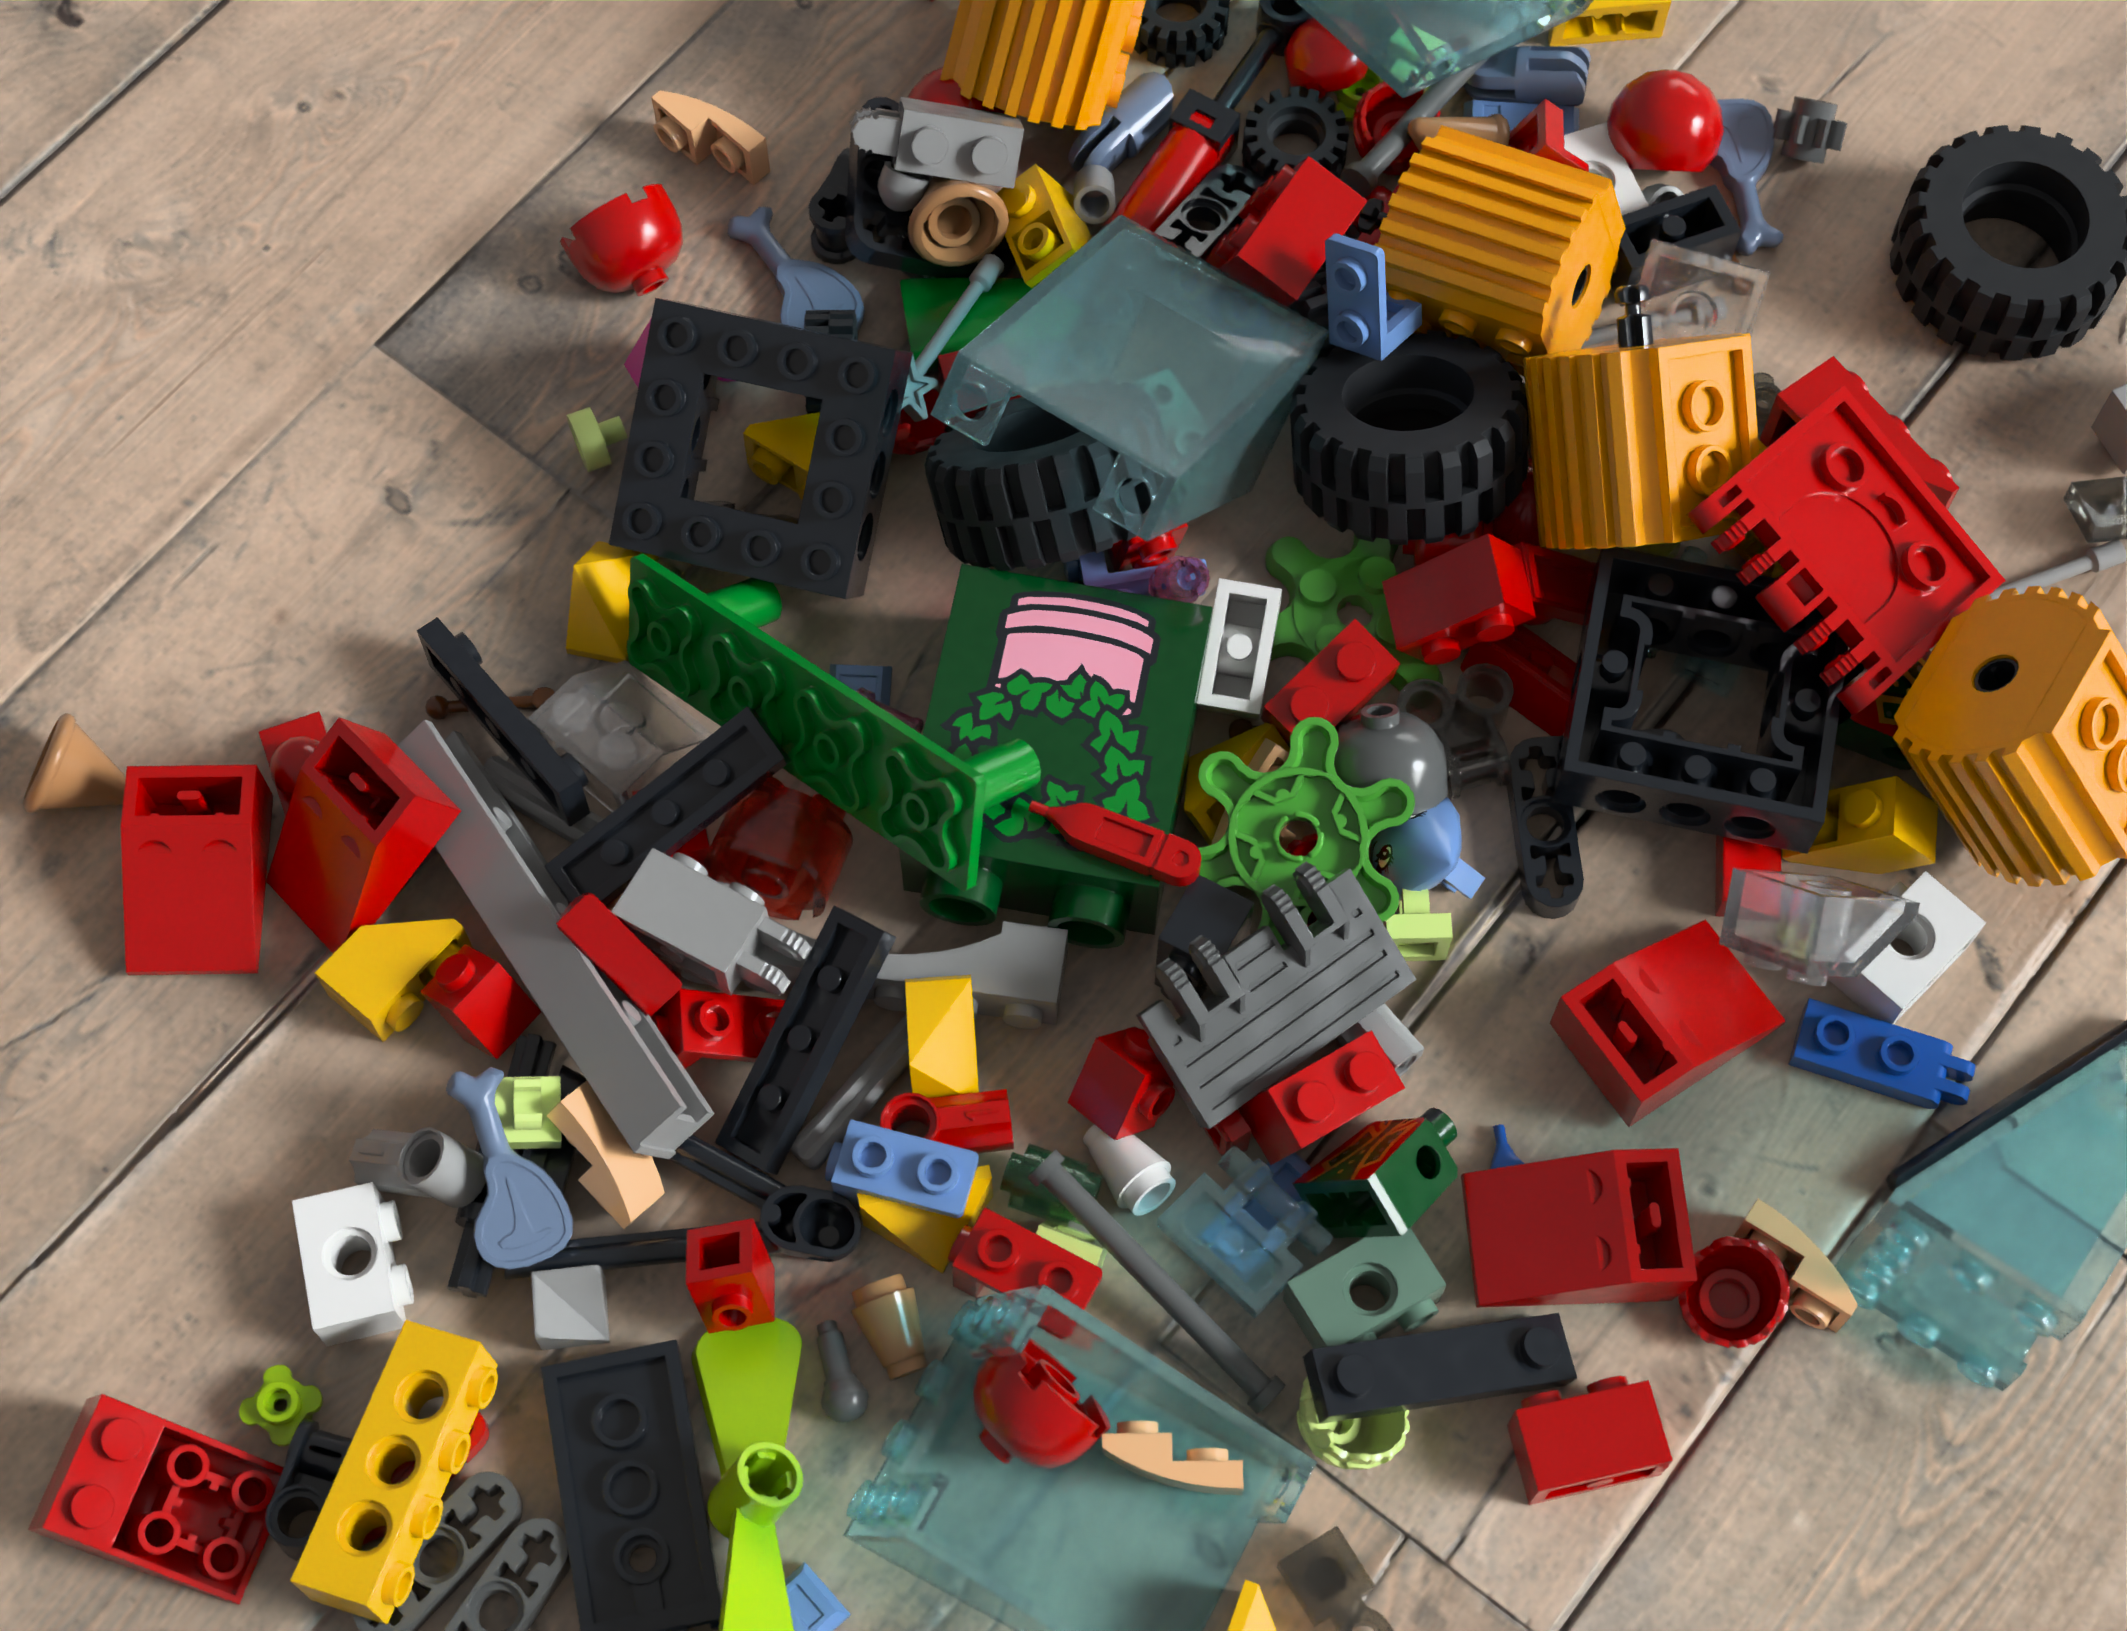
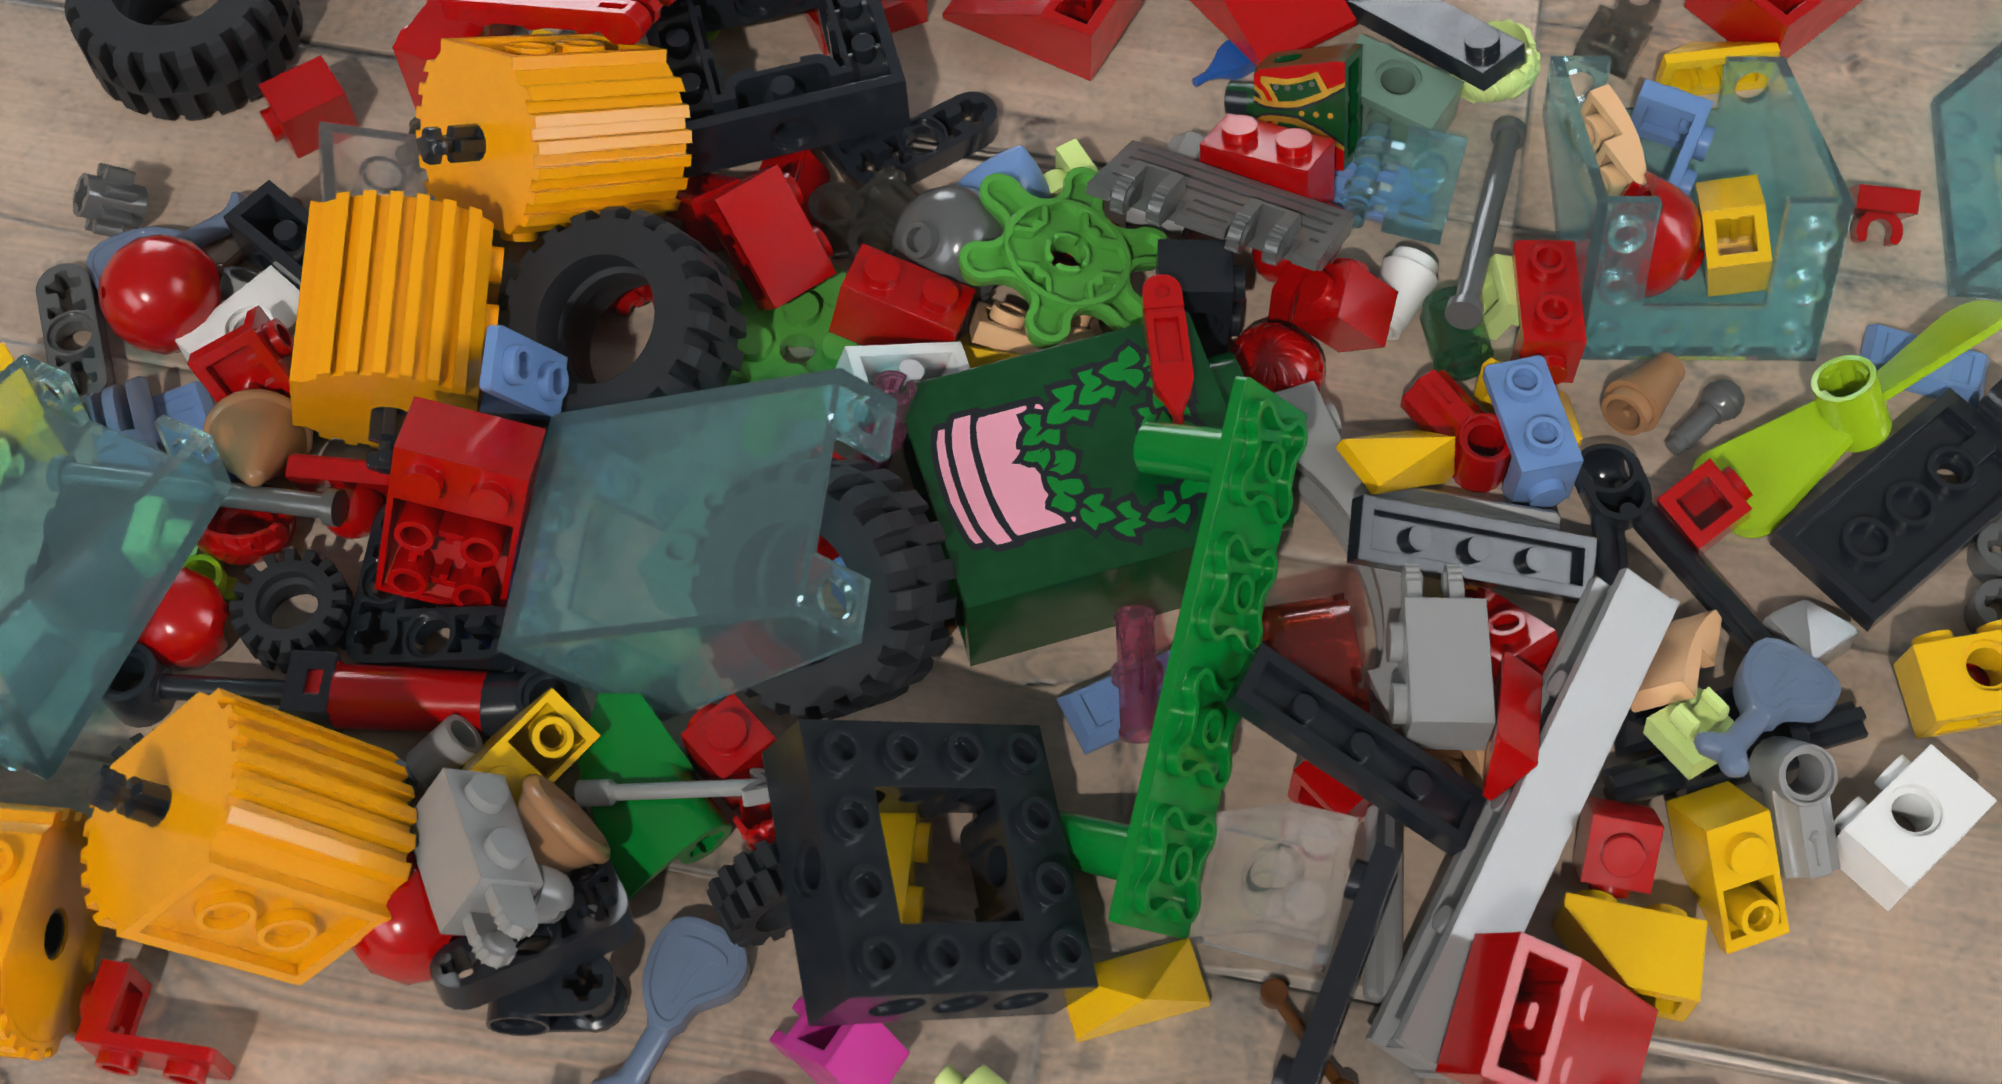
camera: 115 degrees left, 5 degrees down
(407, 1090) = (1730, 864): none -> yellow slope
(1005, 1502) = (1734, 235): none -> yellow slope
(1103, 999) = (1278, 357): none -> red hair
(1190, 1557) = (1676, 121): none -> medium blue bracket
(1689, 59) = (59, 323): none -> dark grey beam
(1852, 316) = (300, 101): none -> red brick

